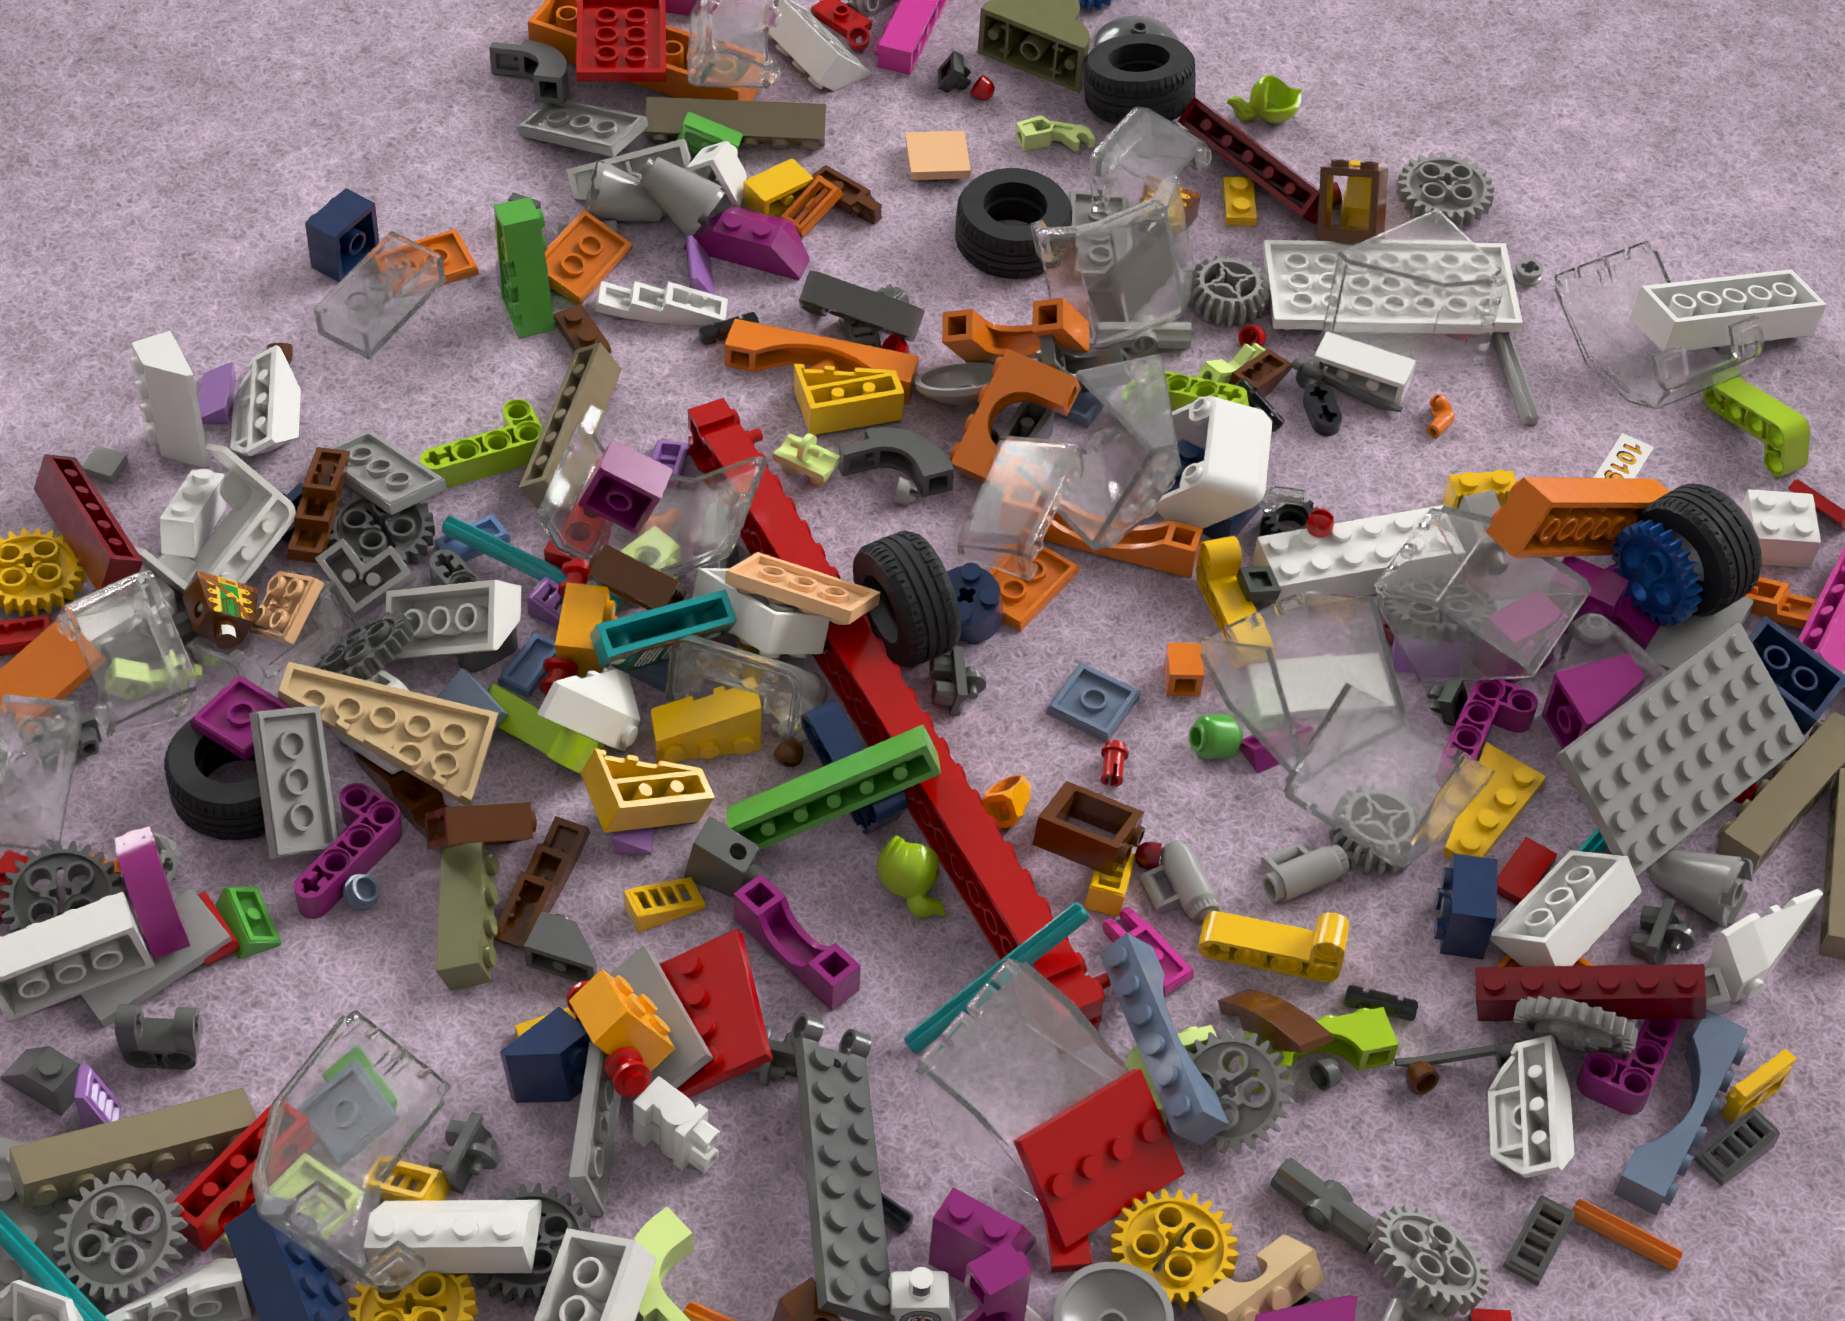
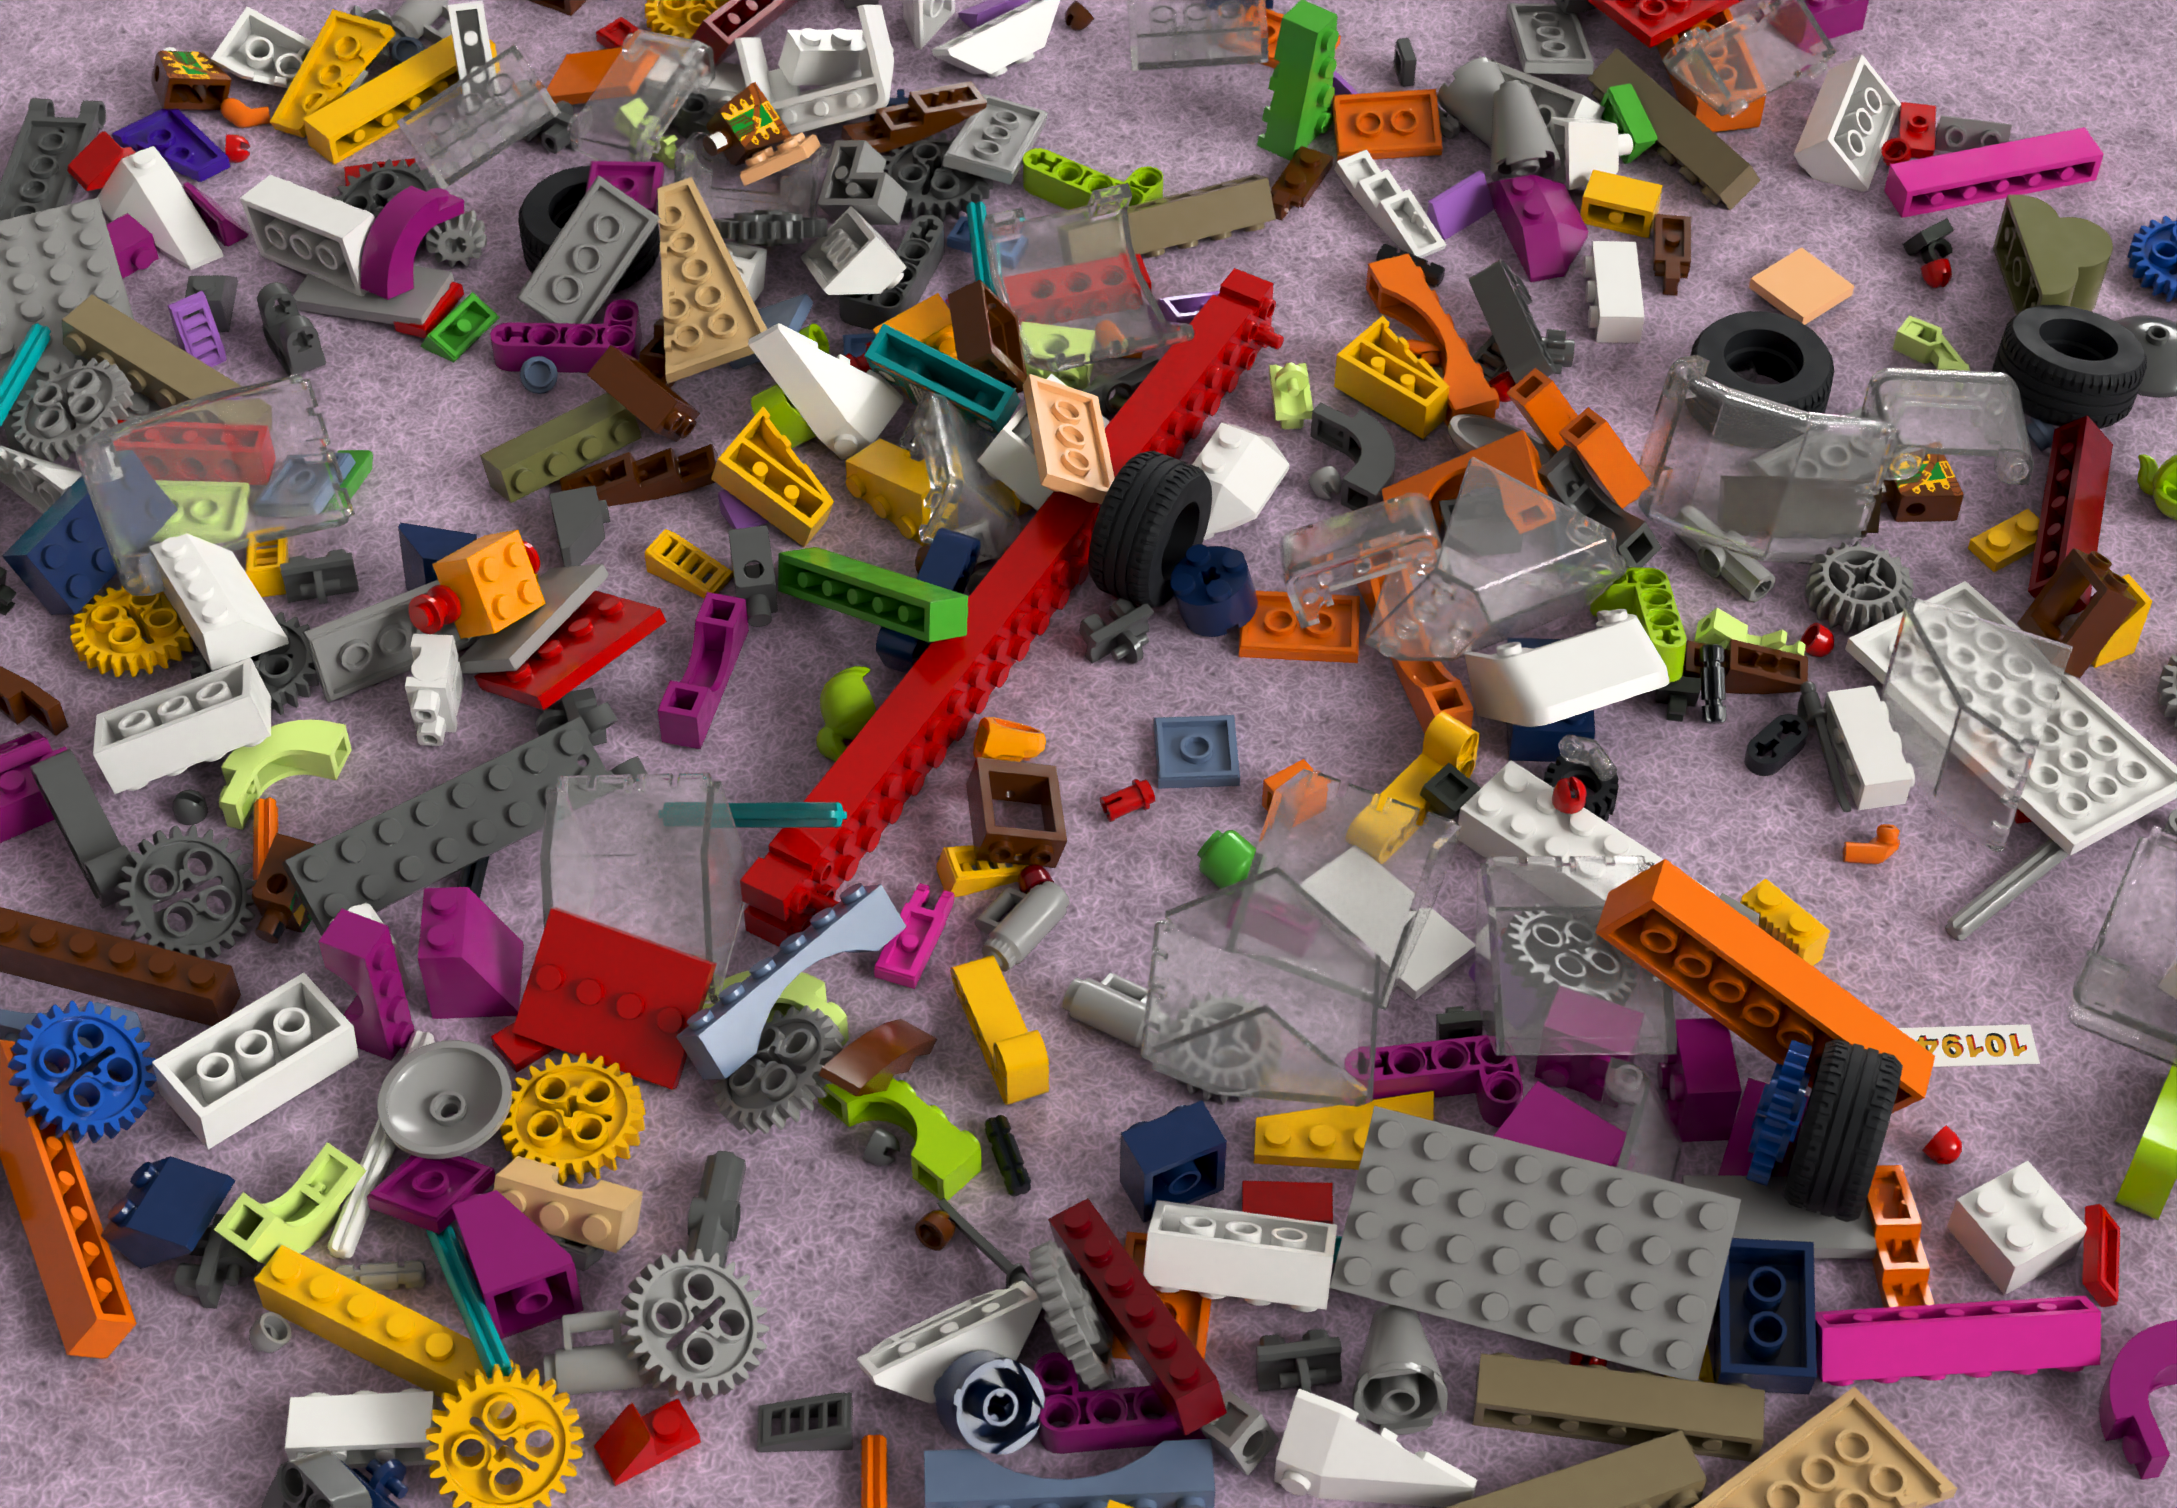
camera: 60 degrees right, 0 degrees up
(625, 487) = (1085, 269): magenta brick -> none
(815, 207) = (1643, 230): orange tile -> none
(846, 526) = (1242, 473): none -> white wedge
(860, 242) = (1614, 292): none -> white brick
(1606, 1115) = (991, 1380): none -> dark blue brick

